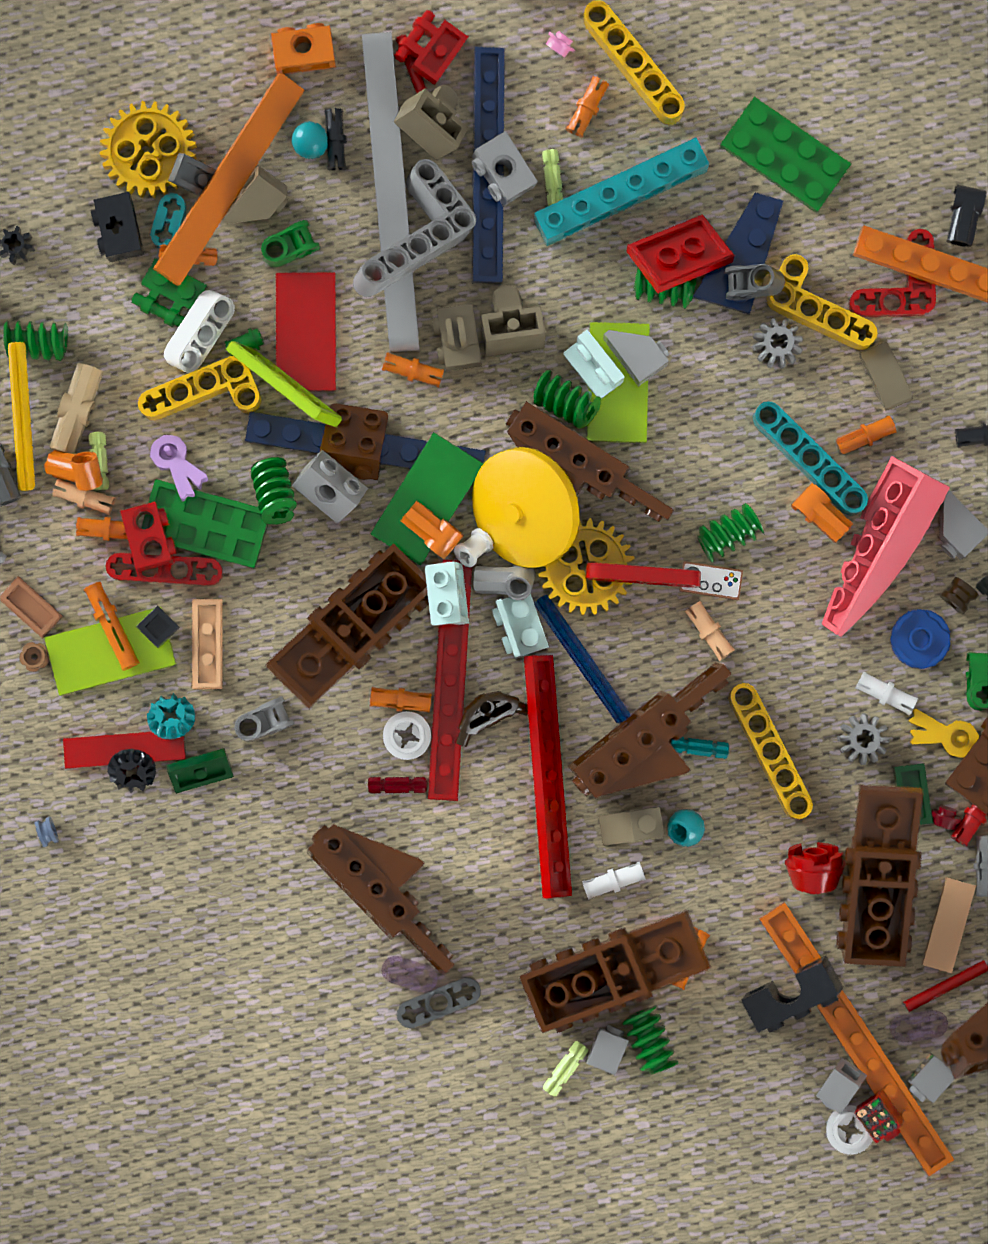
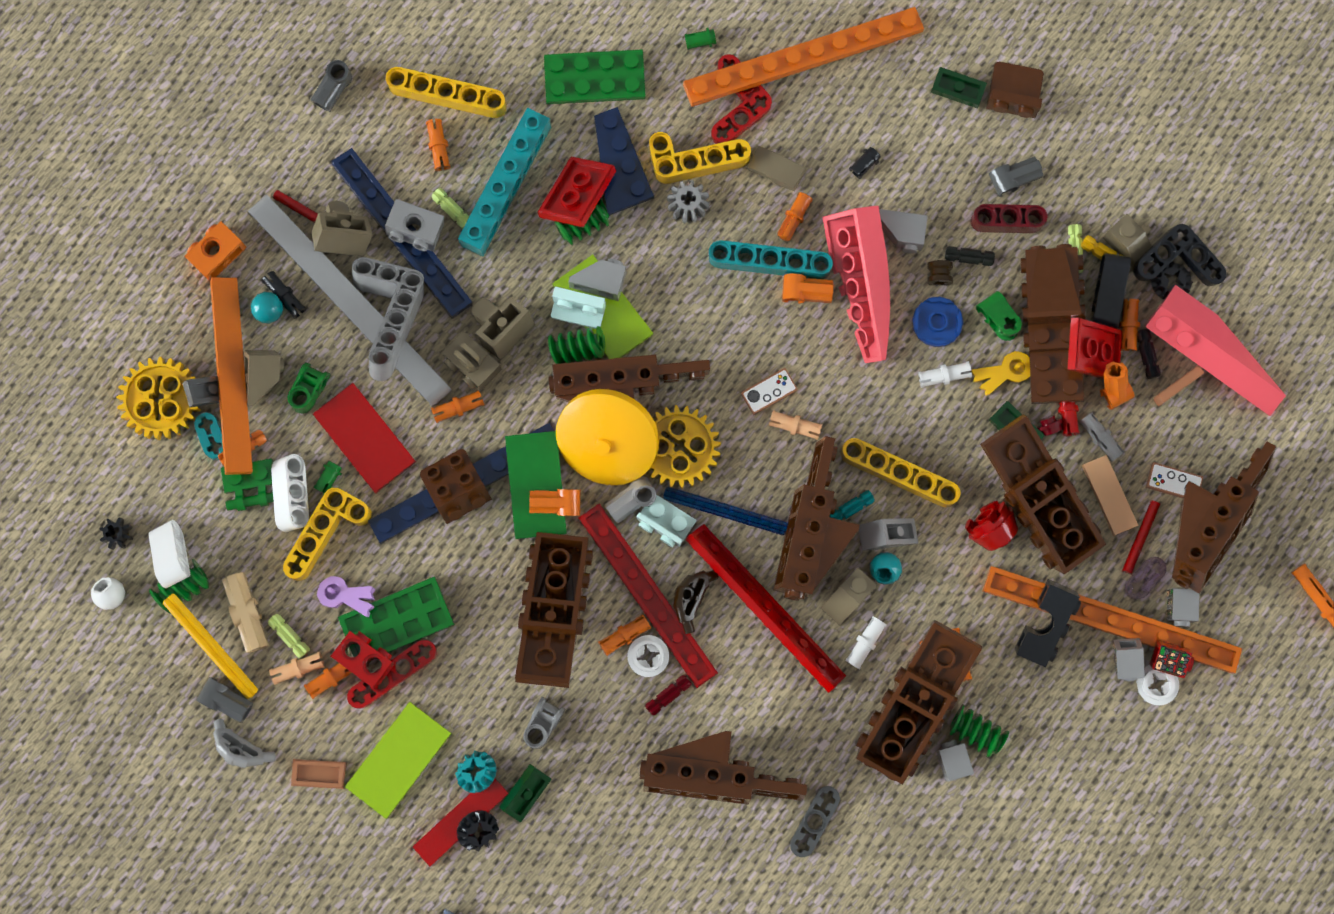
camera: 40 degrees left, 5 degrees down
(26, 656) = (341, 809): medium nougat plate -> none
(48, 302) = (169, 554): none -> white beam
(78, 468) = (278, 650): orange piece -> none
(95, 594) = (358, 727): orange pin -> none
(128, 241) = (192, 472): black brick -> none
(157, 626) = (418, 716): black plate -> none
(207, 644) = (462, 702): light nougat tile -> none
(273, 490) = (426, 560): green piece -> none
(284, 384) = (377, 481): lime tile -> none
(330, 486) = (463, 527): light grey brick -> none
(408, 981) = (782, 823): beam -> none
(438, 53) = (309, 184): red plate -> none
(446, 593) = (599, 537): light aqua bracket -> none
(473, 547) = (593, 492): white bush -> none
(560, 43) = (387, 116): bright pink plate -> none
(565, 1068) = (936, 797): yellowish green axle -> none
(643, 575) = (722, 421): red beam -> none
(714, 798) = (887, 533): none -> light grey slope
(729, 531) = (755, 348): green piece -> none
(747, 281) = (636, 175): dark grey piece -> none
(871, 747) = (945, 412): light grey gear -> none
(914, 195) = (700, 39): none -> green pin
(965, 213) = (742, 23): black piece -> none

